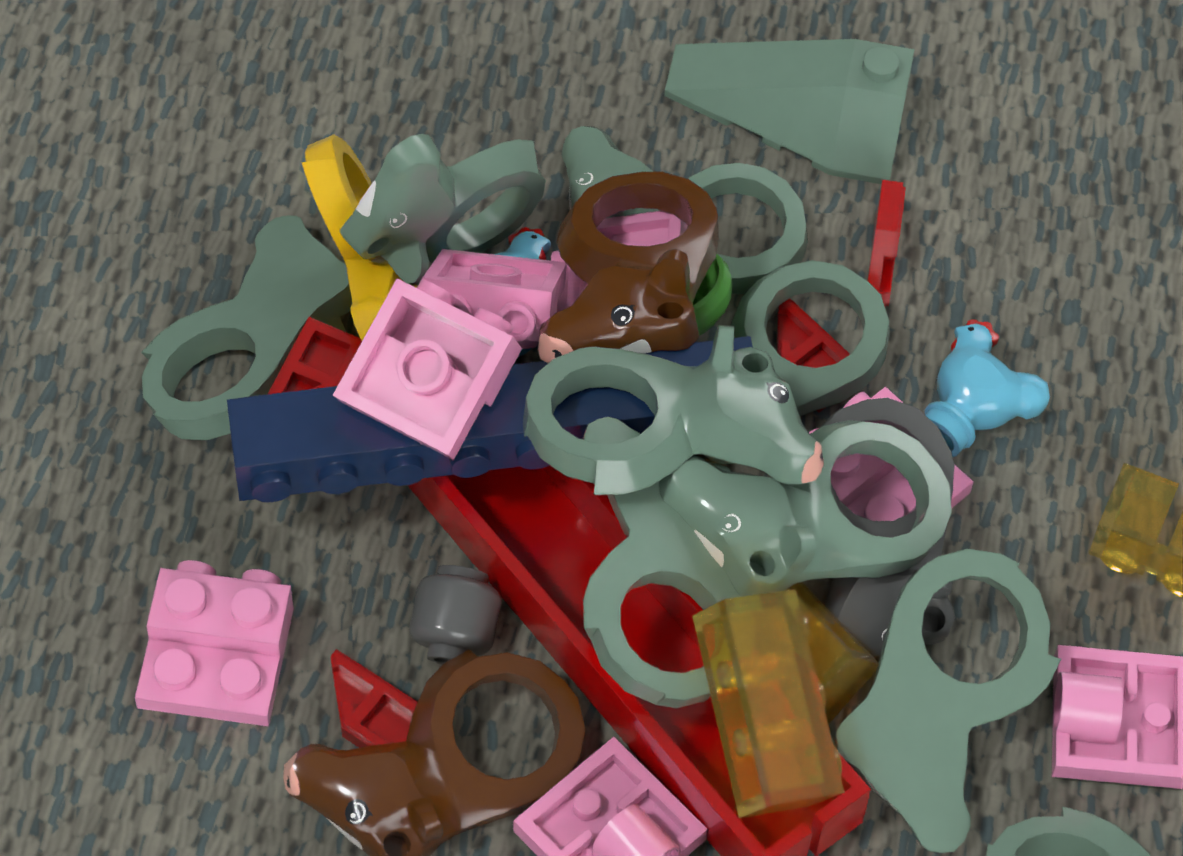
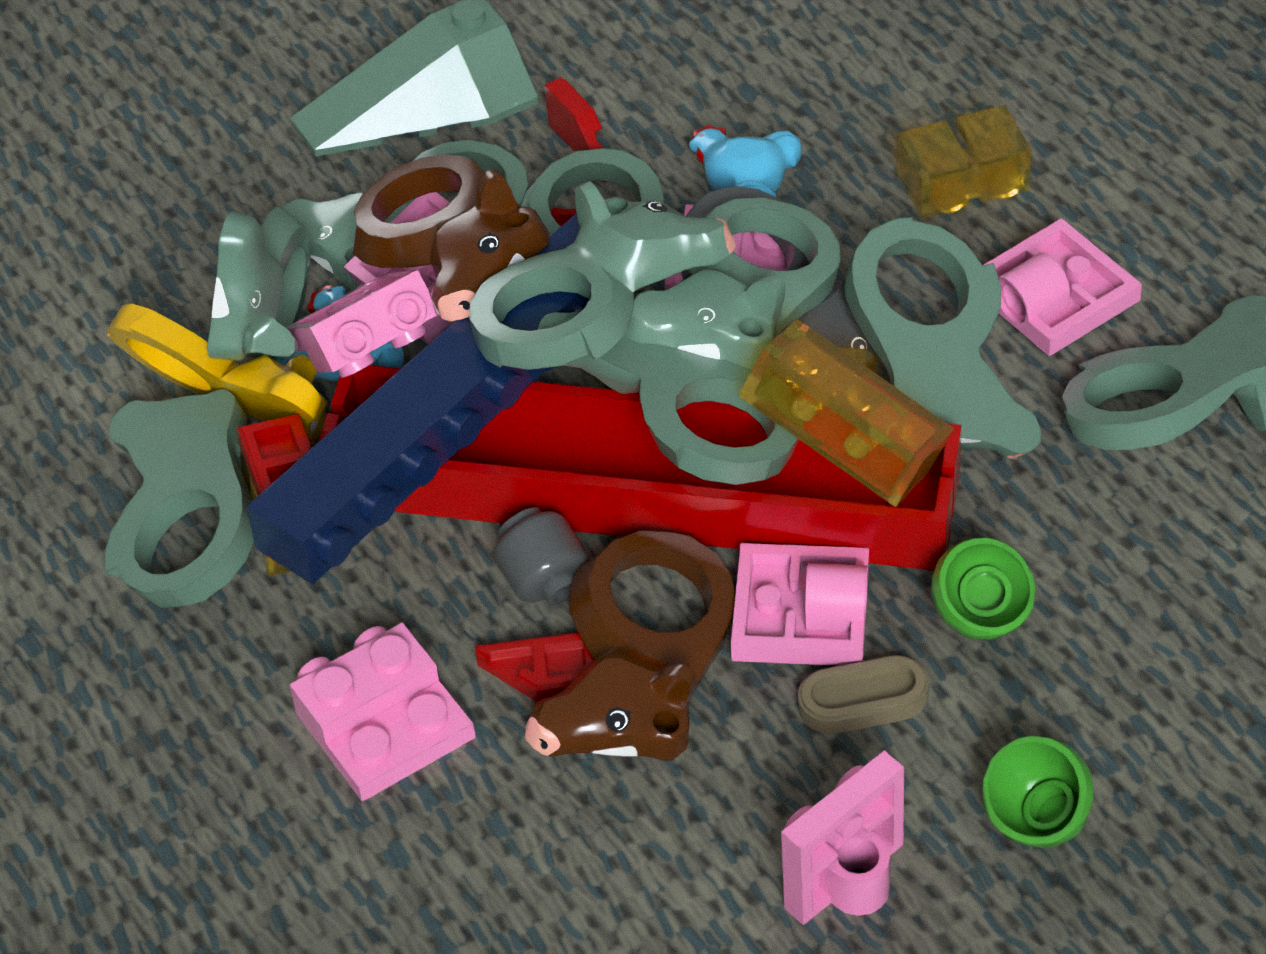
camera: 35 degrees left, 10 degrees down
(429, 366) = (386, 367): bright pink plate -> none

